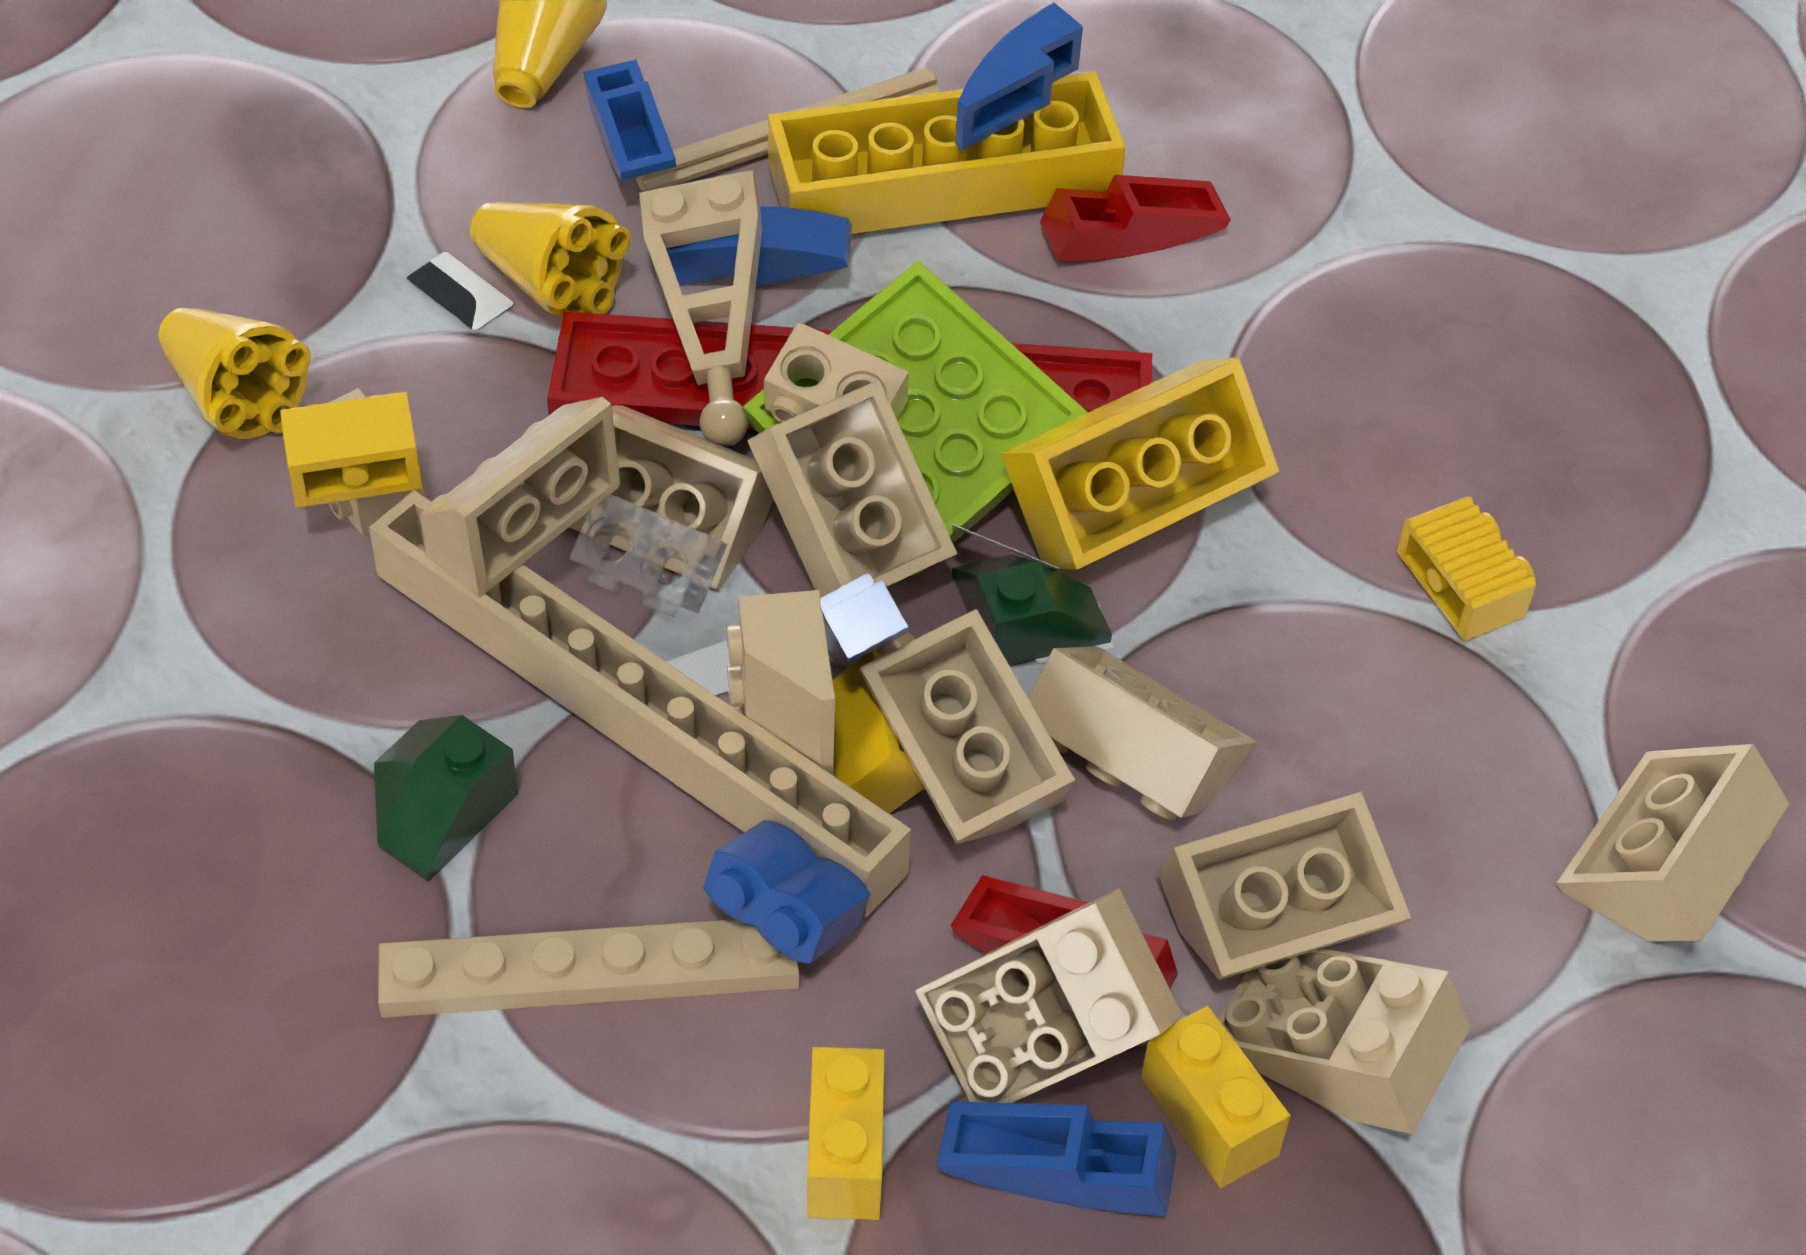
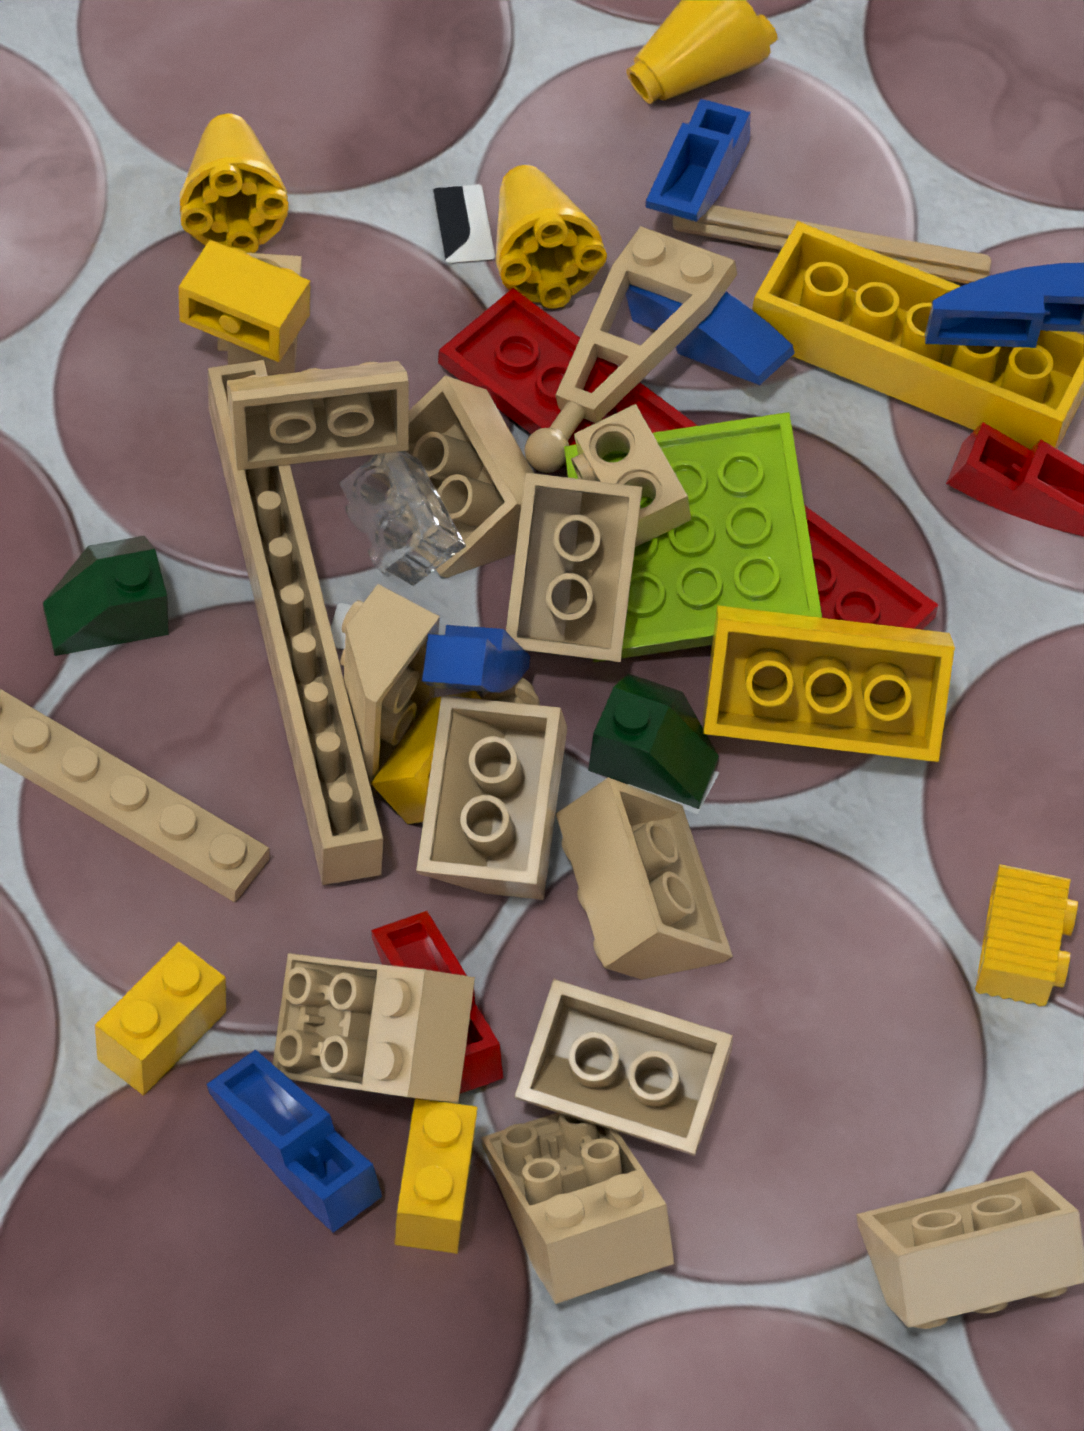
camera: 35 degrees right, 5 degrees up
(786, 891) = (266, 824): blue brick -> none
(1003, 546) = (665, 681): white sticker -> none

